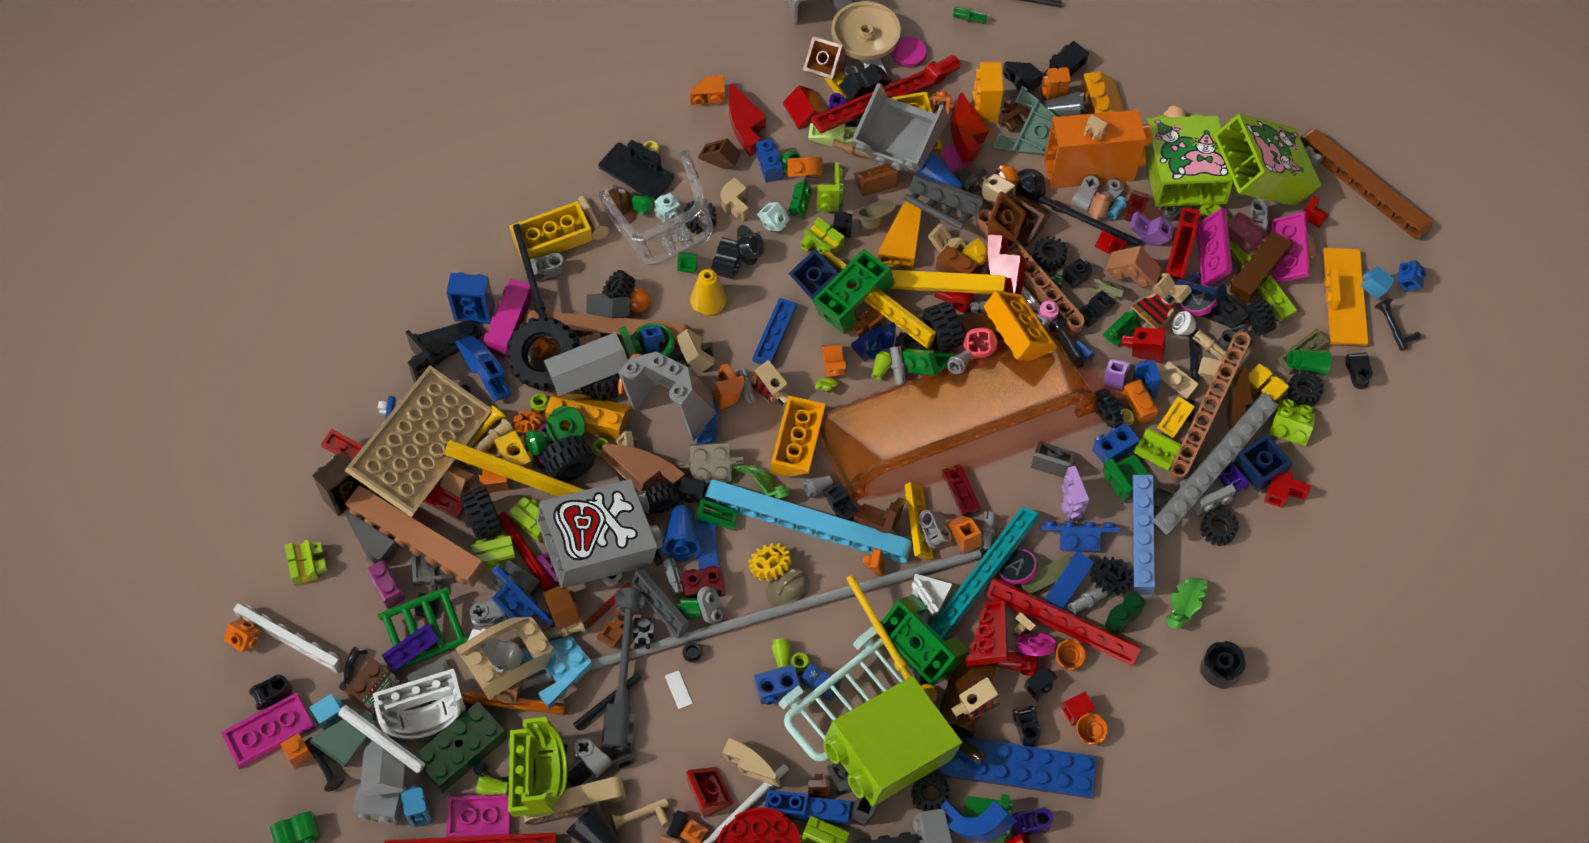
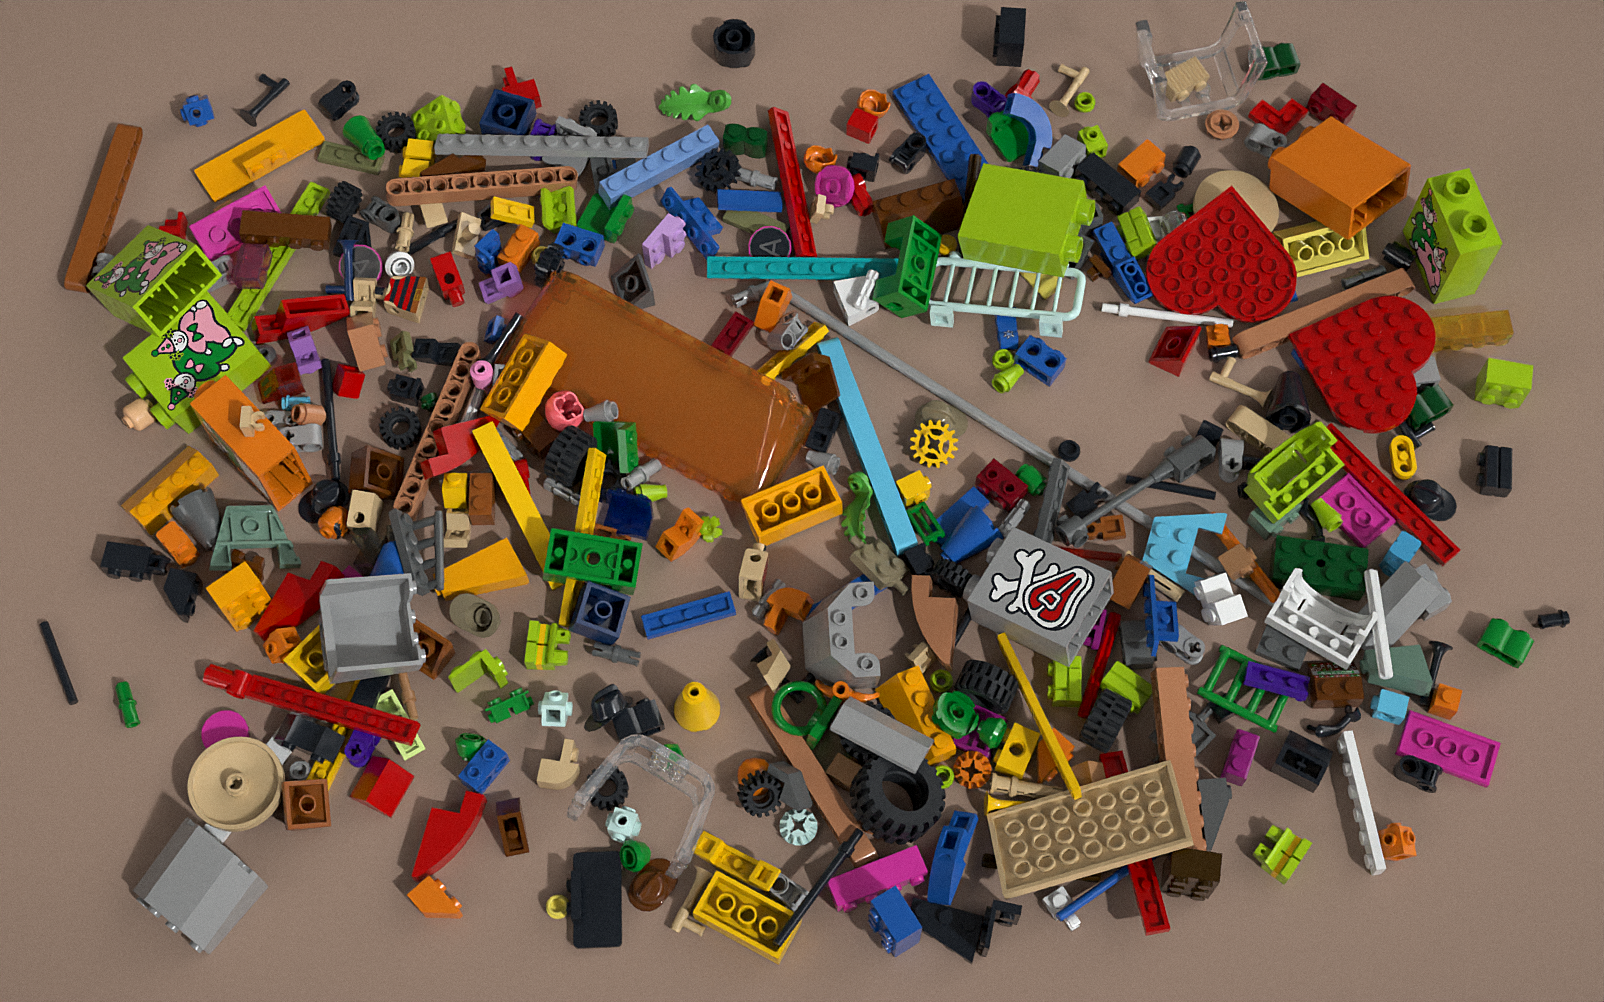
camera: 125 degrees left, 5 degrees up
(346, 621) = (1302, 761): none -> black slope
(484, 671) = (1250, 587): tan wedge -> none
(574, 302) = (798, 837): none -> light aqua gear
(590, 253) = (735, 863): none -> yellow slope
(650, 339) = (798, 708): blue leg -> none
(678, 689) = (1109, 441): white sticker -> none
(710, 605) = (1019, 459): light grey plate -> none
(748, 526) = (914, 488): none -> yellow brick
(749, 762) = (1126, 329): tan slope -> none
(781, 278) = (616, 654): none -> dark grey pin
(805, 167) = (468, 716): orange brick -> none
(844, 220) = (511, 639): black brick -> none
(875, 562) = (860, 361): orange tile -> none
(900, 664) = (941, 274): yellow bar -> none
(983, 694) = (934, 179): tan torso -> none
(990, 636) = (865, 214): red wing -> none
(1005, 218) = (399, 477): dark orange slope -> none
(1121, 327) = (442, 317): green hinge -> none
(1214, 247) = (293, 279): dark pink tile -> none
(1377, 282) = (227, 132): dark azure brick -> none

